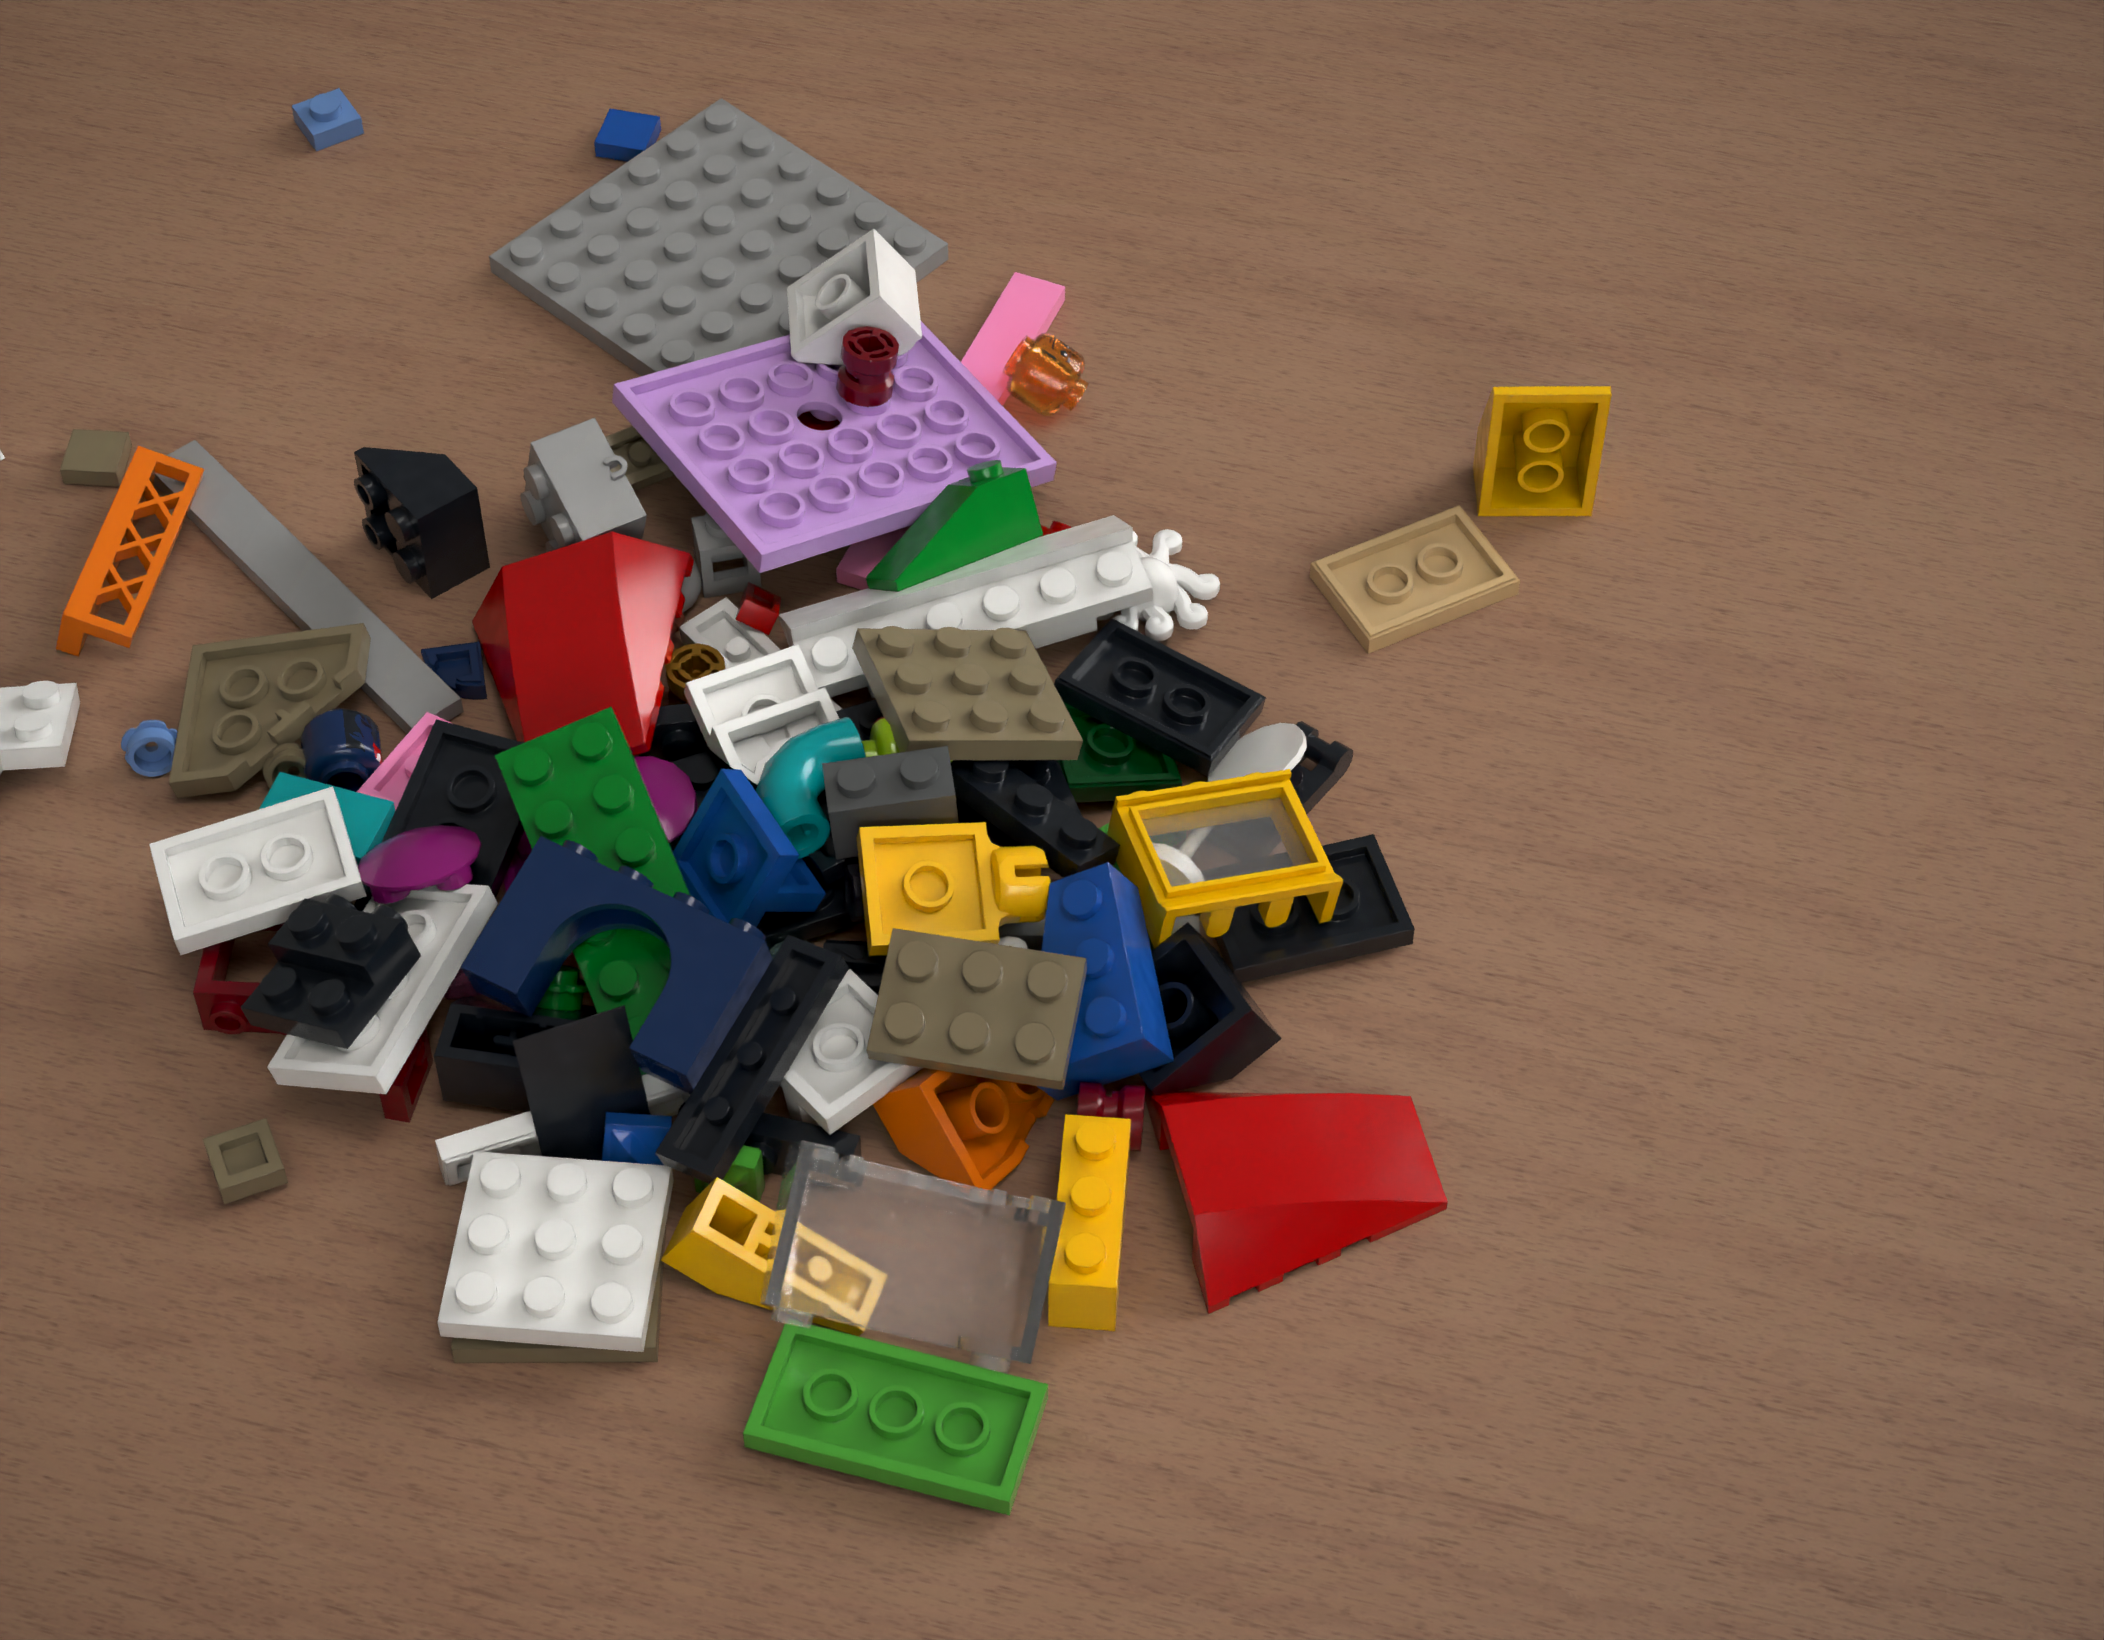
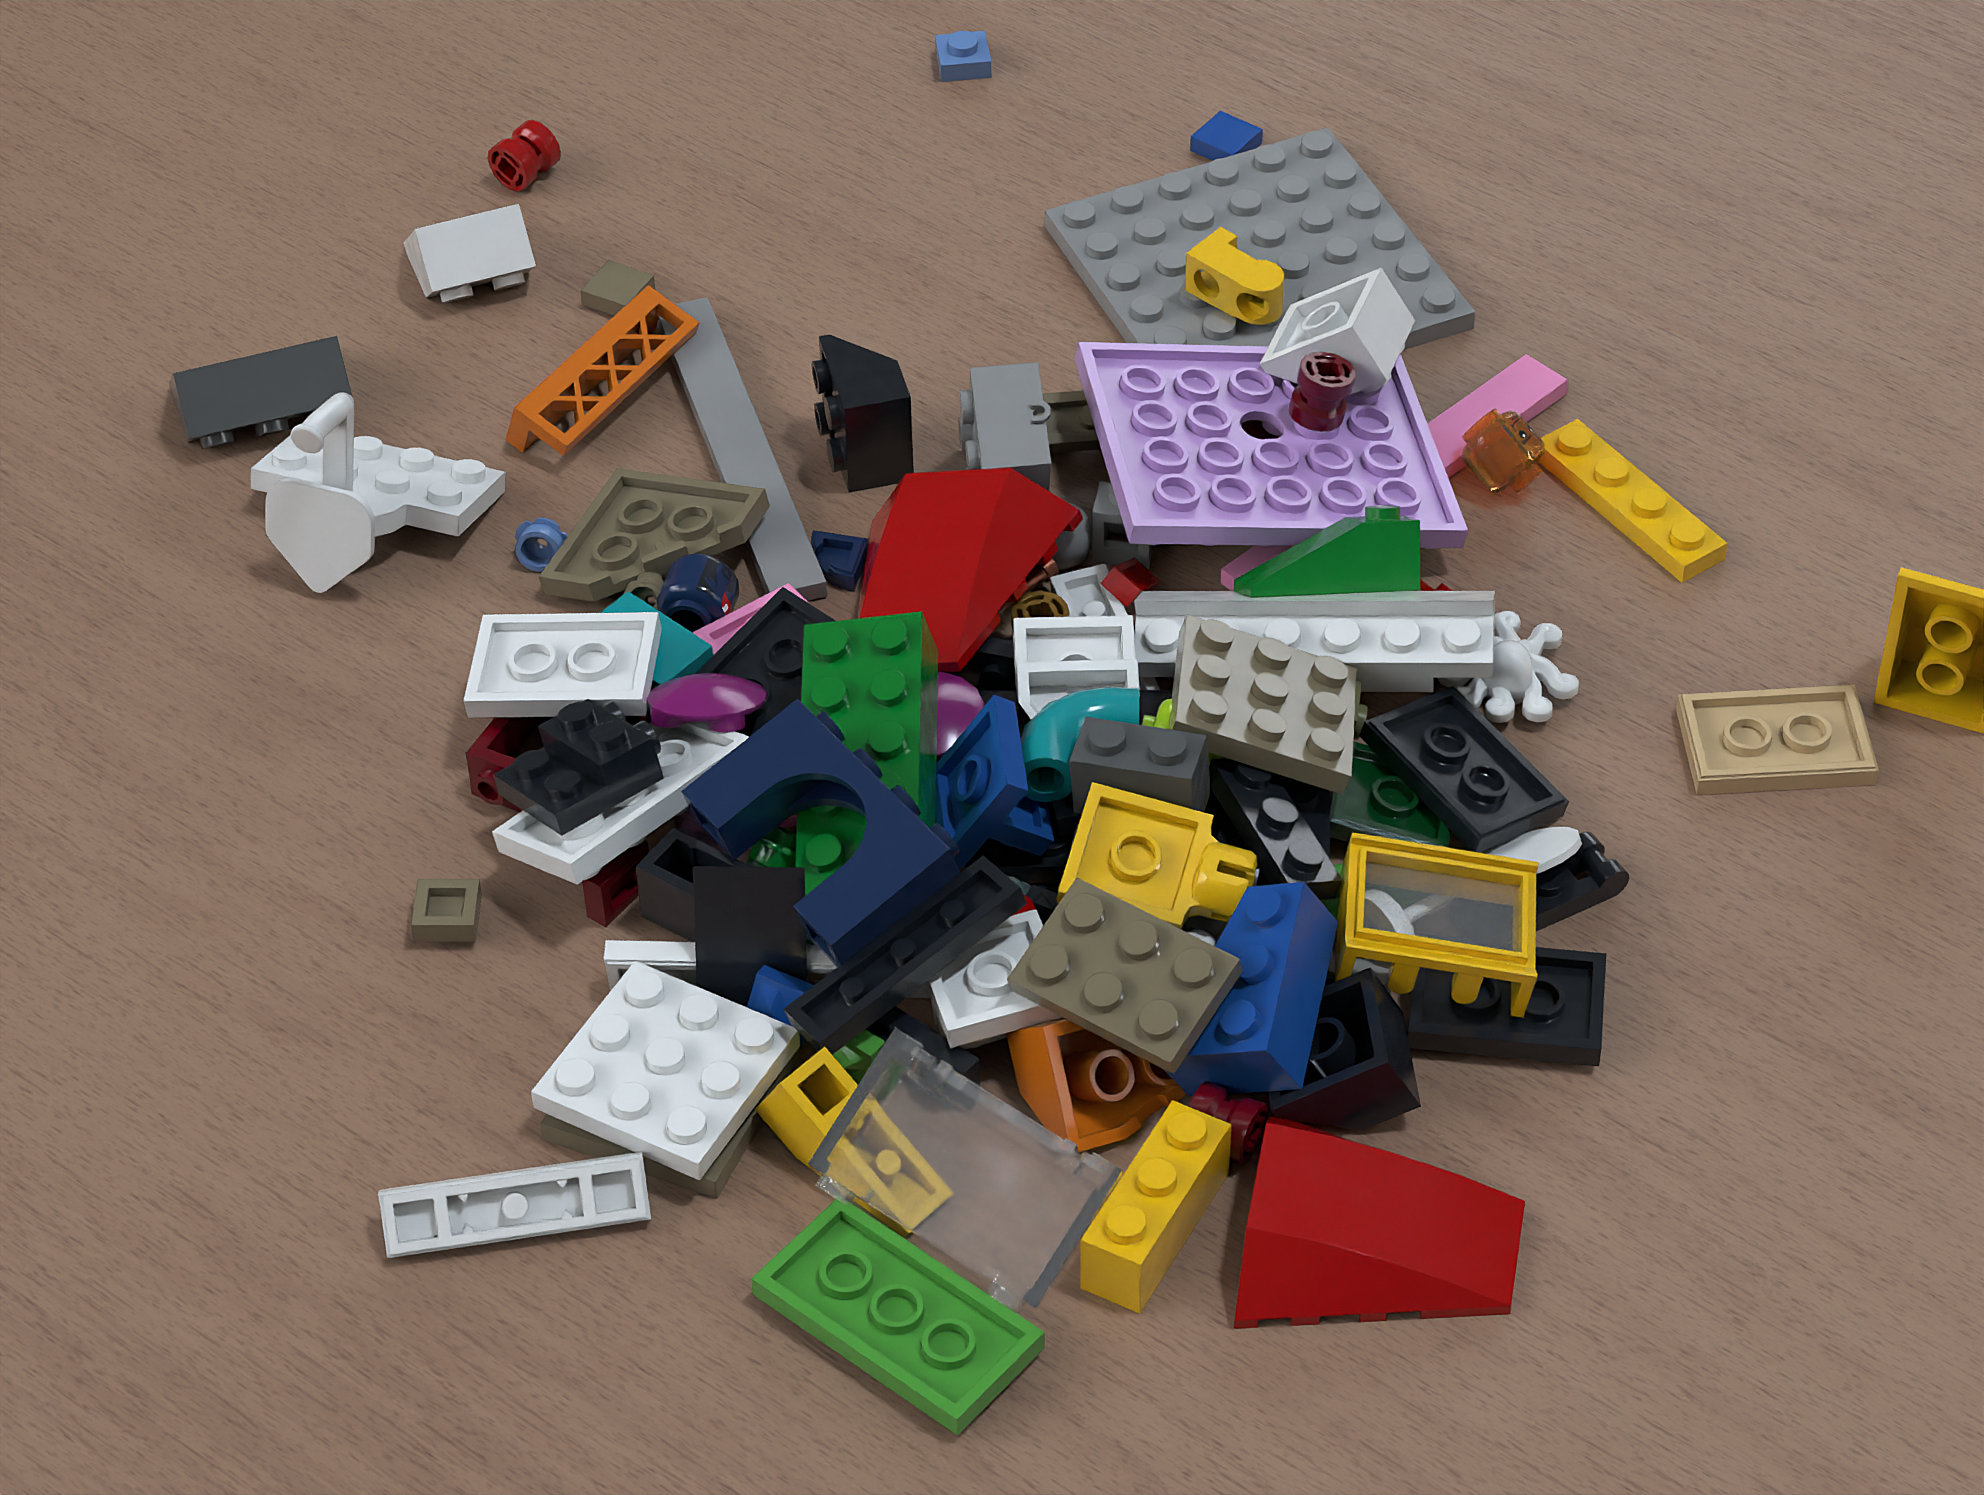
camera: 25 degrees right, 5 degrees down
(467, 1443) = (514, 1204): none -> white plate
(718, 276) = (1234, 279): none -> yellow leg
(1178, 388) = (1631, 501): none -> yellow plate

